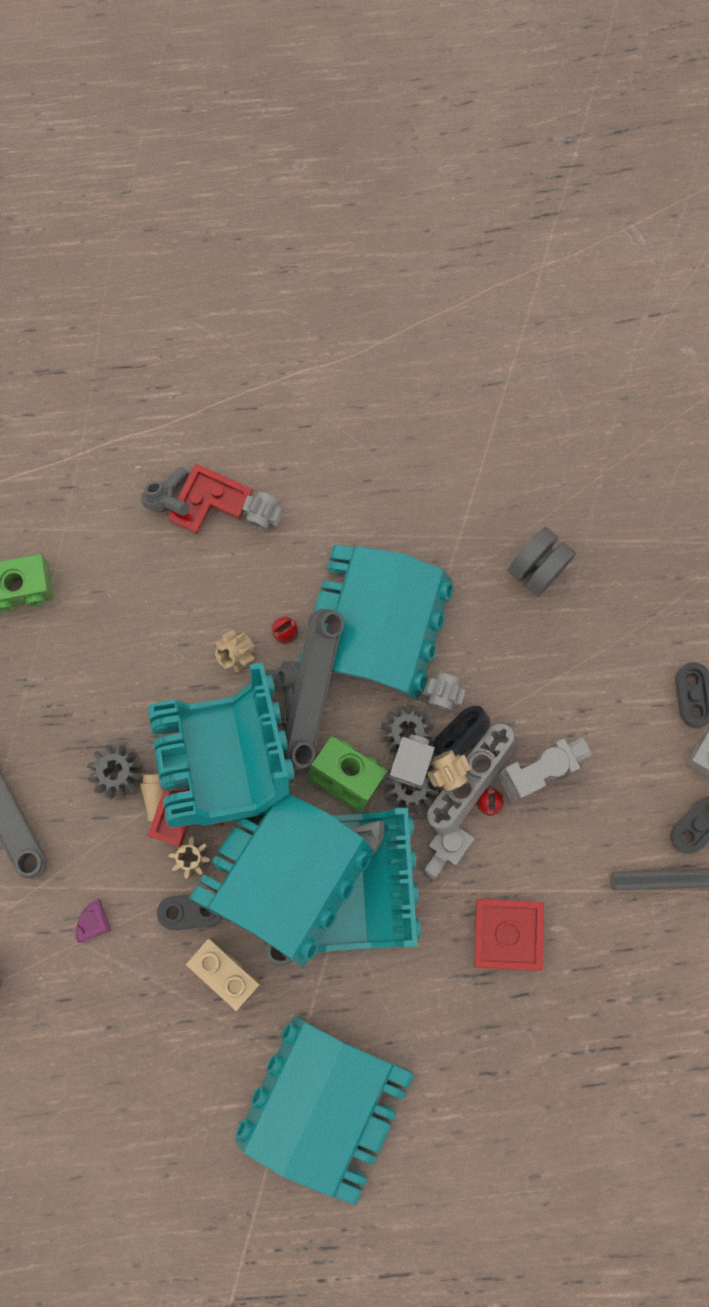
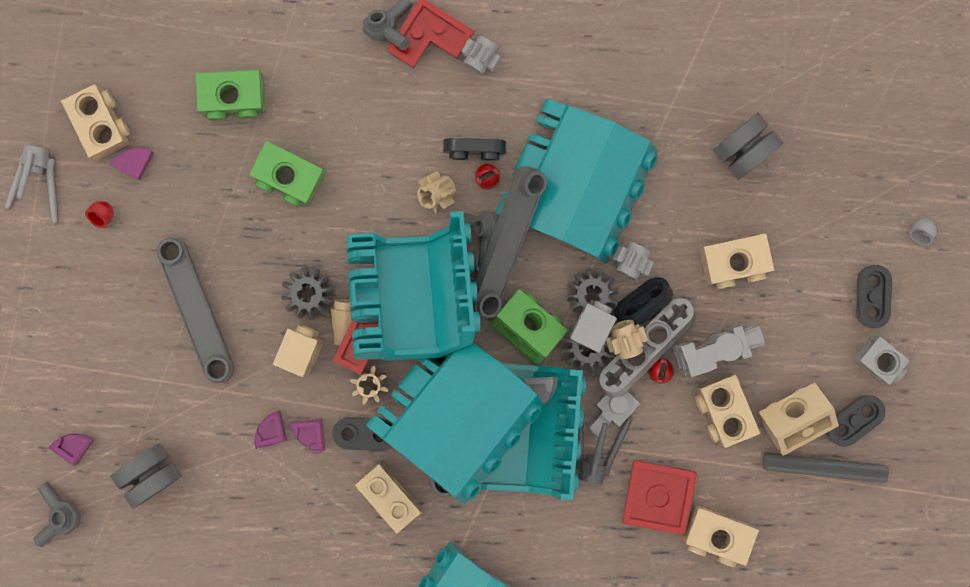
camera: 10 degrees right, 10 degrees up
(67, 641) = (274, 160): none -> bright green brick
(111, 829) = (299, 350): none -> tan brick
(133, 919) = (309, 433): none -> magenta tile
(256, 603) = (462, 147): none -> black plate
(435, 912) = (593, 467): none -> dark grey plant
(563, 664) = (756, 258): none -> tan brick
(572, 828) = (733, 407): none -> tan brick
(599, 963) = (738, 542): none -> tan brick
(640, 830) = (814, 419): none -> tan brick

